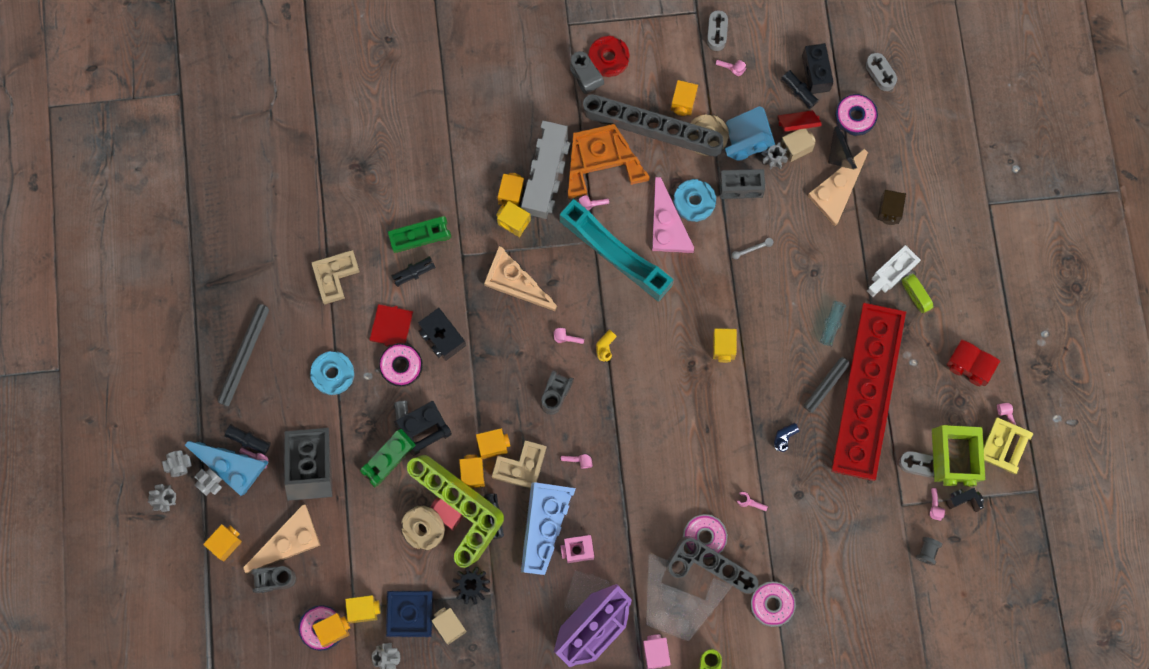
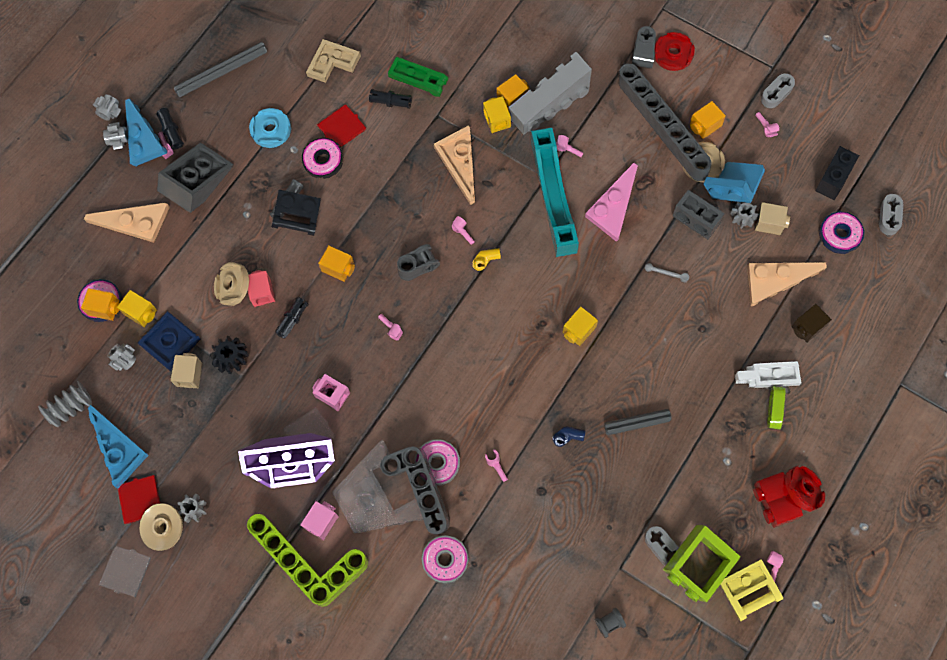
camera: 45 degrees right, 5 degrees down
(162, 498) = (69, 120): light grey gear -> none
(223, 542) = (88, 185): light orange brick -> none
(268, 579) = (95, 237): dark grey piece -> none
(388, 457) = (251, 214): green plate -> none
(452, 340) = (373, 147): black brick -> none
(460, 504) = (276, 288): lime beam -> none
(472, 471) = (303, 273): light orange brick -> none
(523, 471) = (345, 303): tan plate -> none
(544, 518) = (326, 349): light blue wing -> none
(601, 150) = (606, 112): orange wing -> none
(694, 212) = (650, 214): medium azure tile -> none
(799, 89) = (809, 179): black pin -> none
(799, 120) = (787, 201): red piece -> none
(832, 323) = (683, 377): clear light blue pin -> none
(840, 152) = (804, 249): black slope -> none
(868, 392) = (667, 454): red plate -> none
(936, 512) = (644, 596): bright pink hand -> none
(960, 497) = (674, 600): black bracket -> none
(985, 339) = (809, 498): none -> red tile

